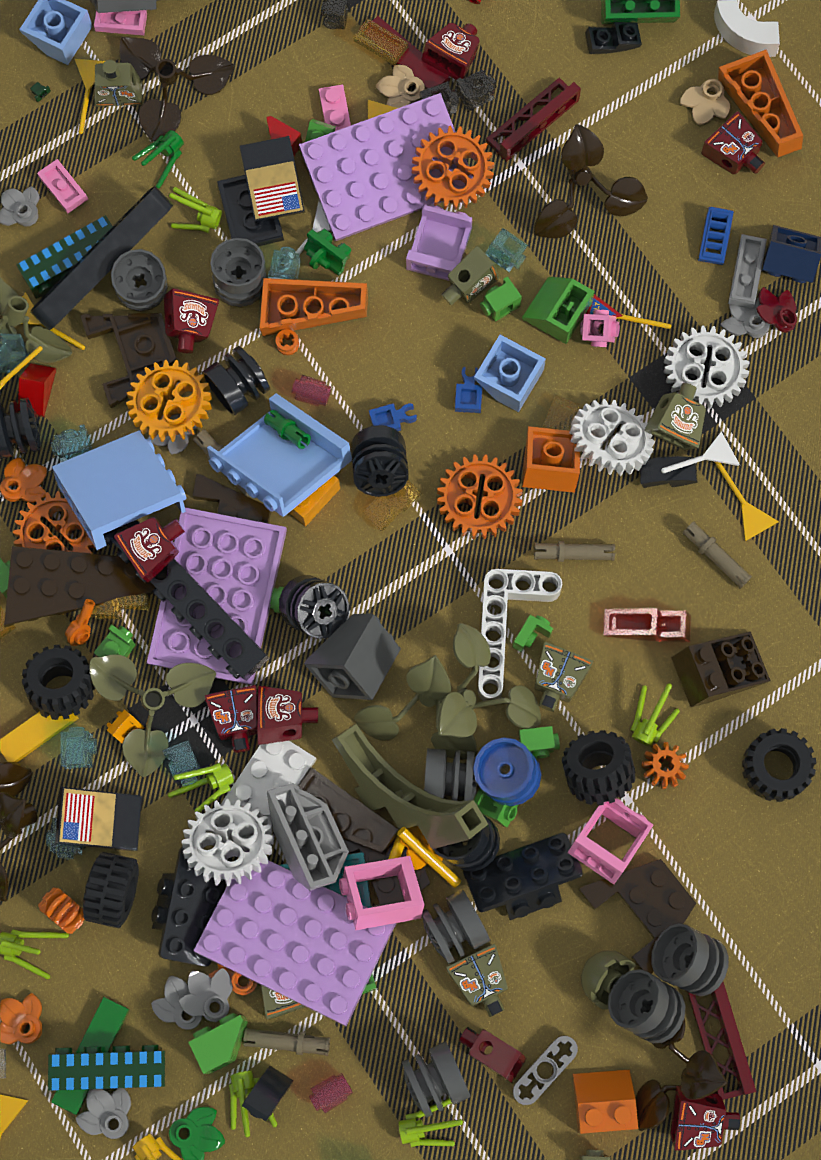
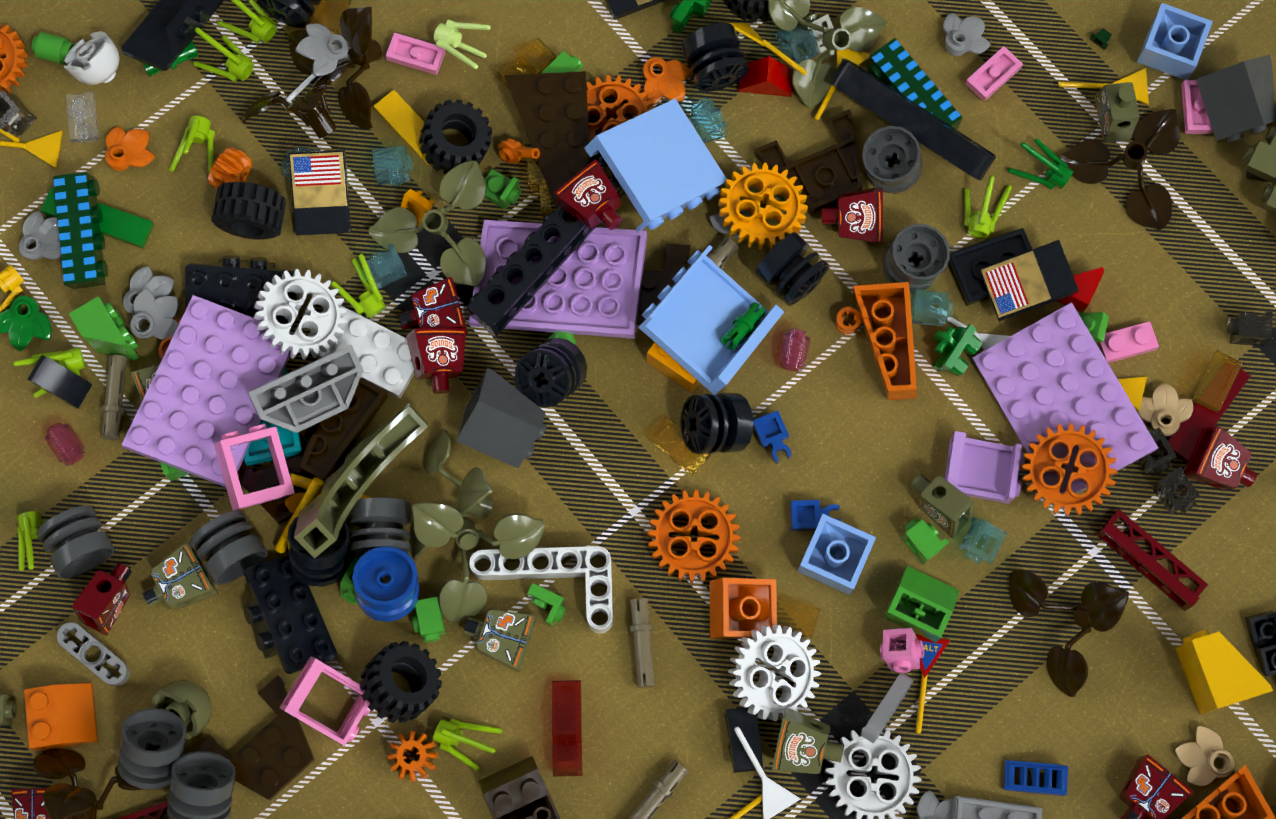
camera: 80 degrees right, 0 degrees up
(640, 77) = (1218, 672): none -> yellow slope
(650, 345) = (887, 707): none -> light grey beam

